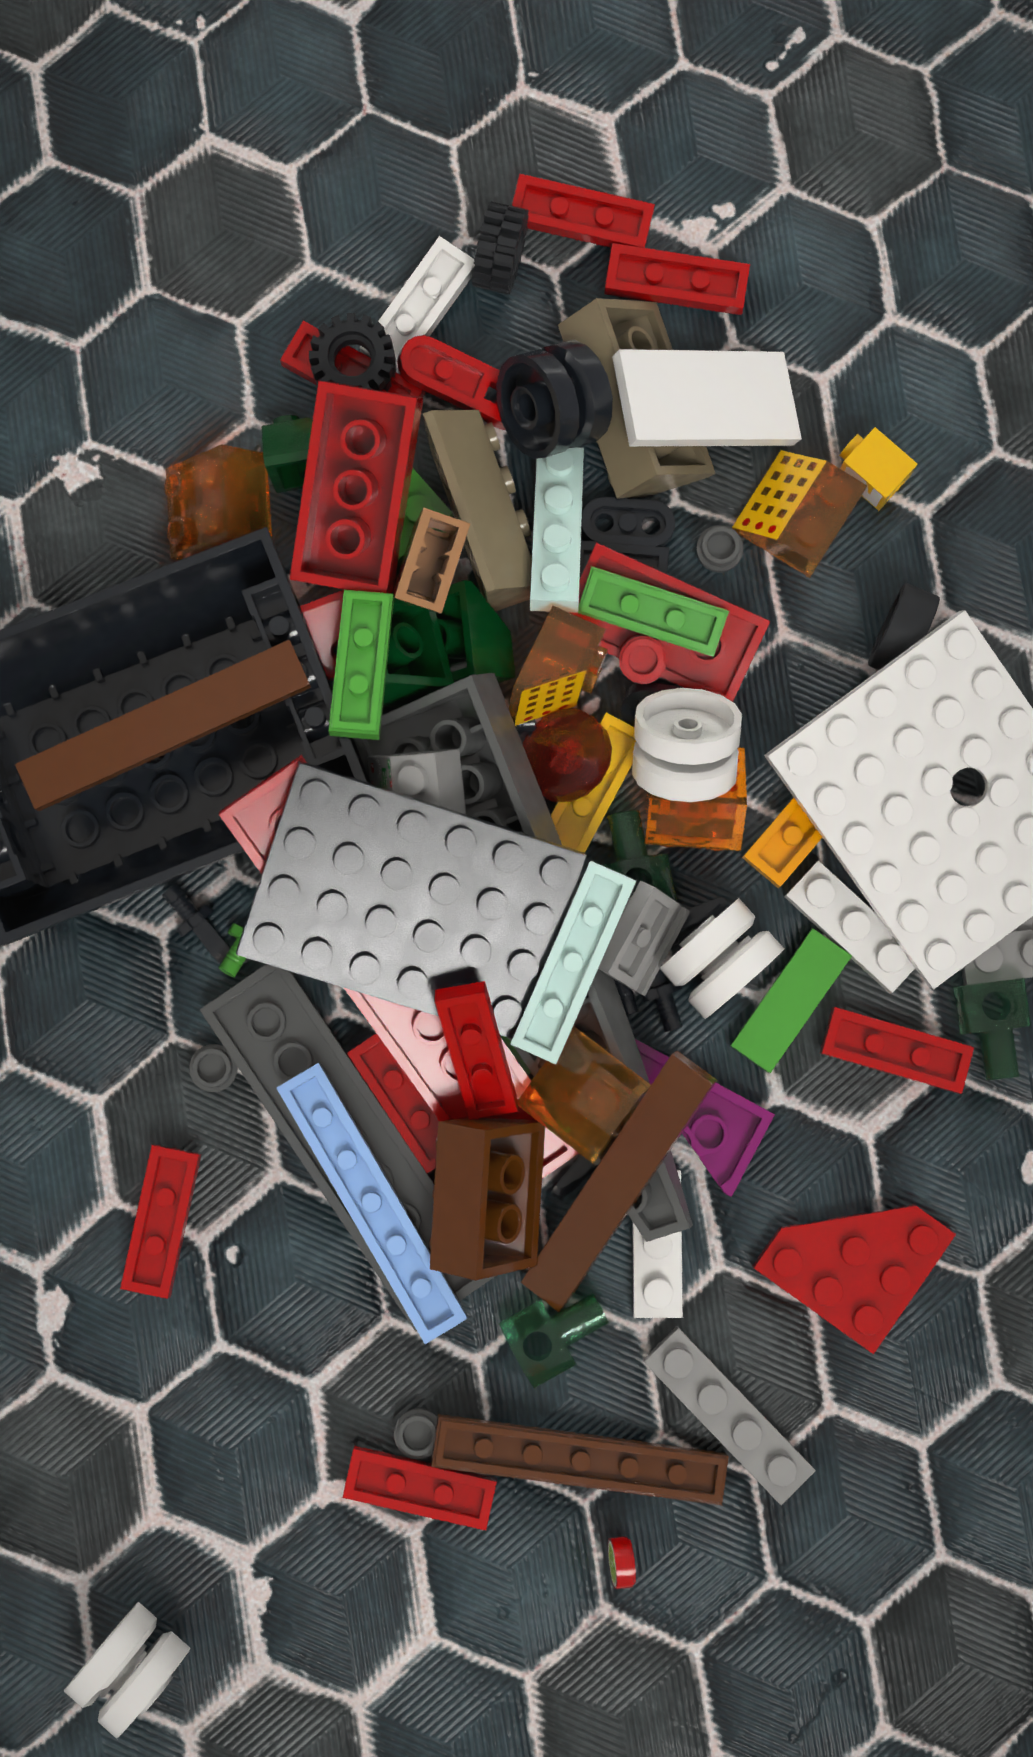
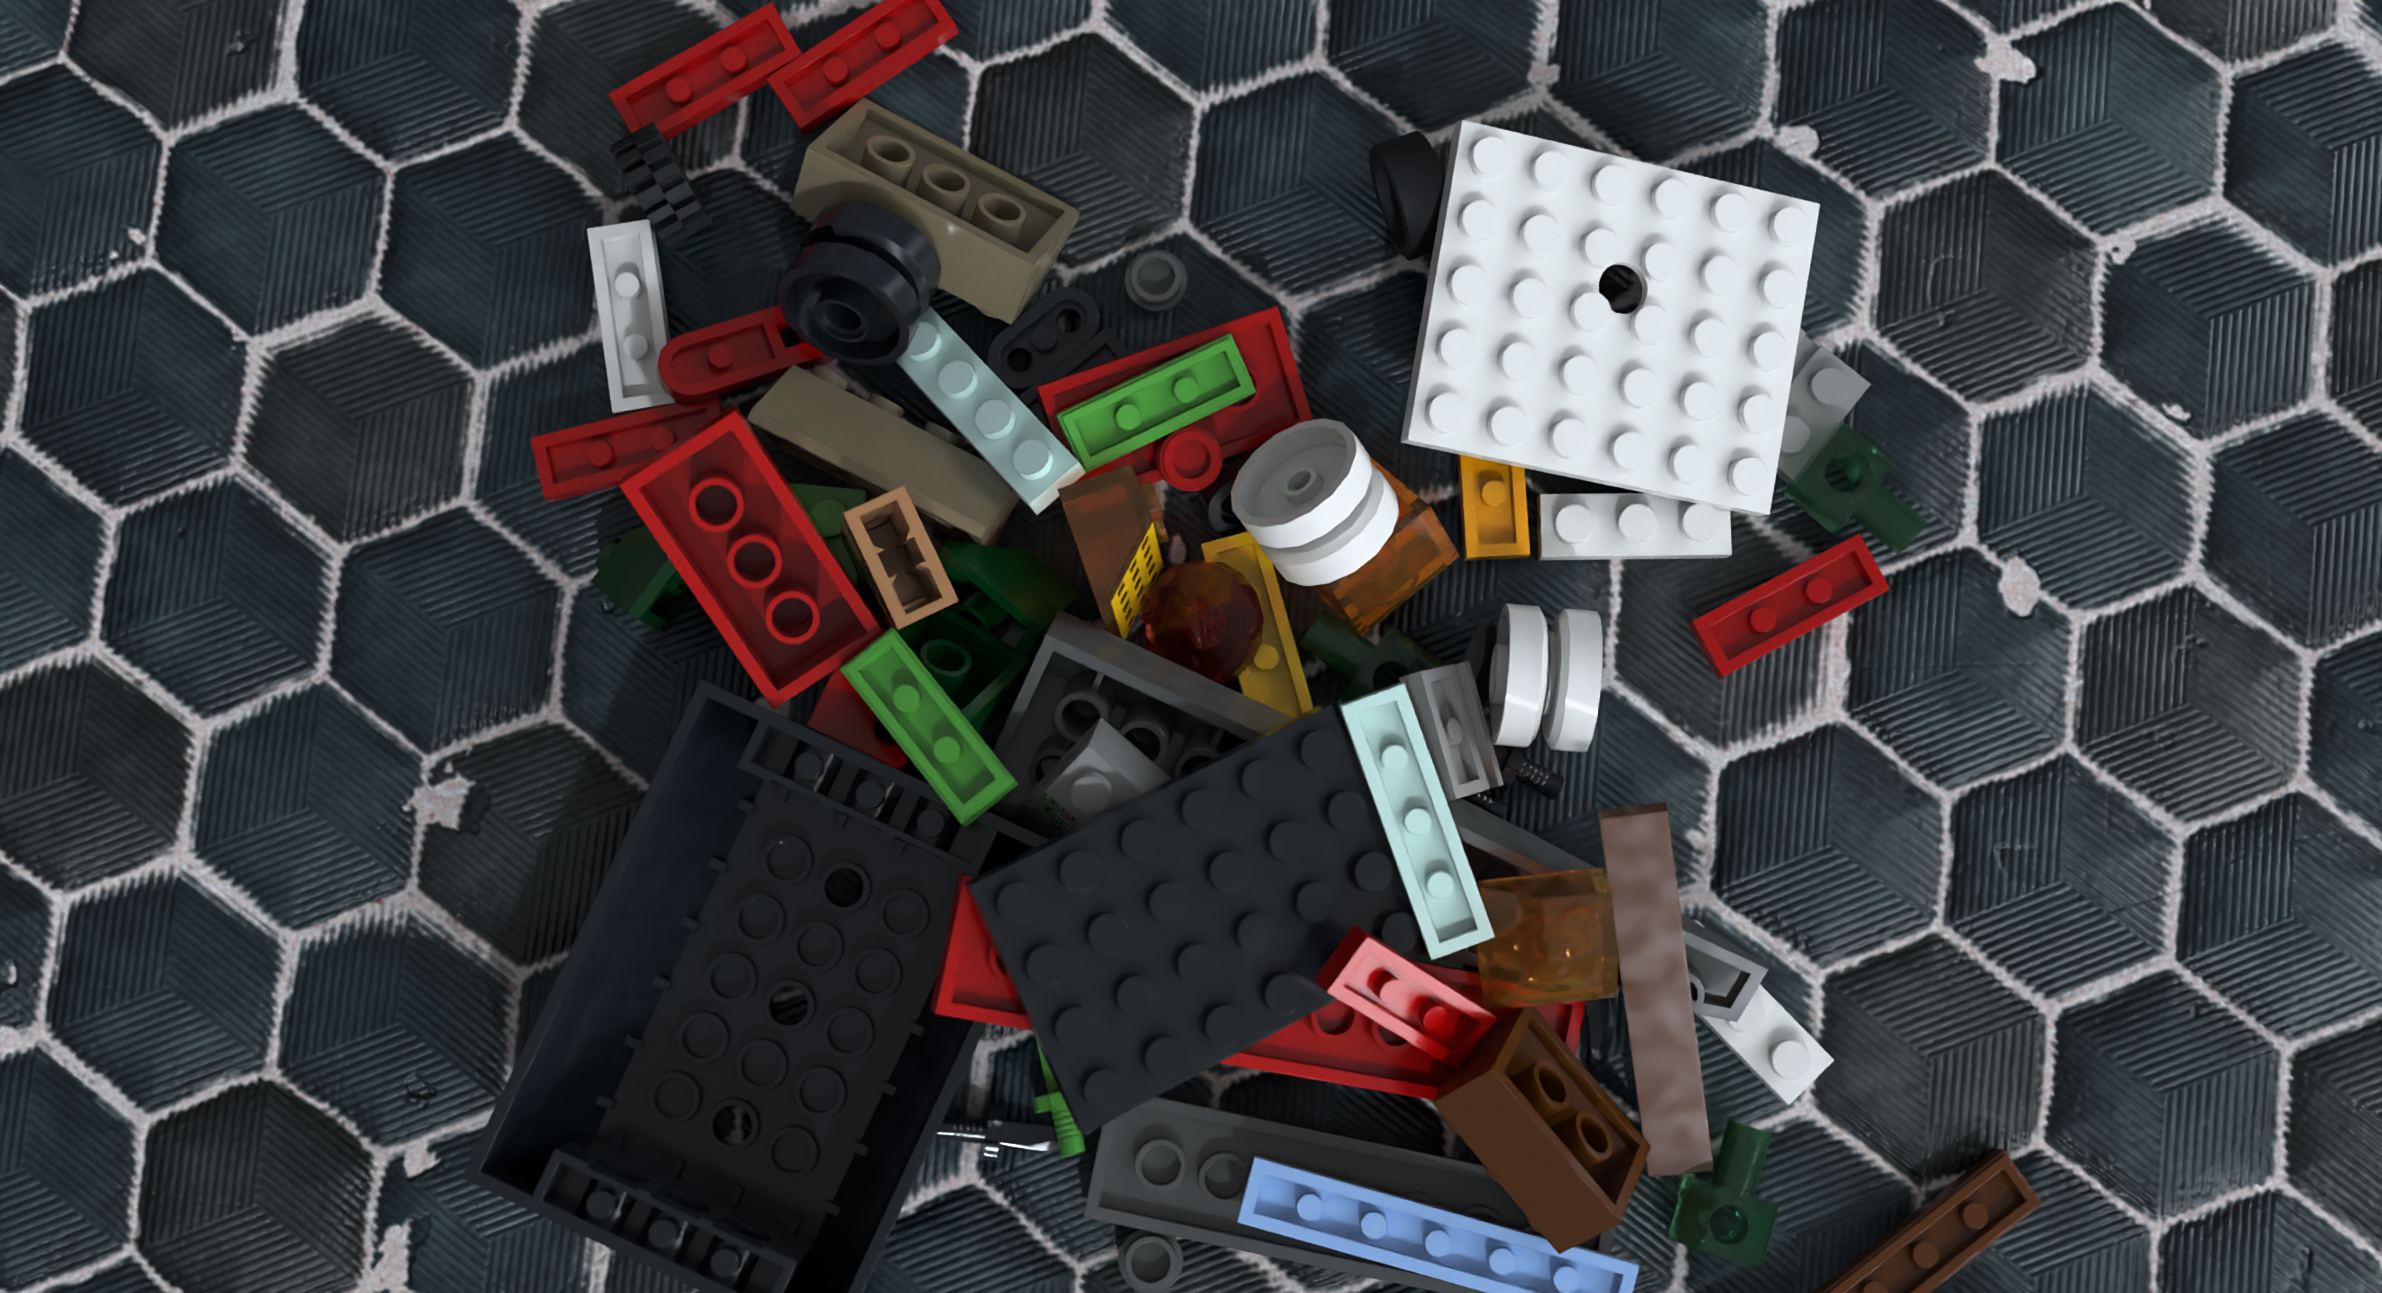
camera: 50 degrees left, 0 degrees up
(162, 725) = (788, 978): reddish brown tile -> none
(216, 499) = (616, 699): clear orange slope -> none
(359, 333) = (597, 400): black tyre -> none
(398, 1098) = (1364, 1115): red plate -> none
(706, 398) = (1006, 146): white tile -> none
(723, 1128) = (1708, 842): magenta wing -> none
(729, 1415) = (1965, 1110): light grey plate -> none
(790, 1000) = (1642, 654): bright green tile -> none
(799, 509) = (1198, 171): clear orange slope -> none
(857, 1267) = (1948, 850): red plate -> none
(878, 465) = (1232, 62): yellow brick -> none

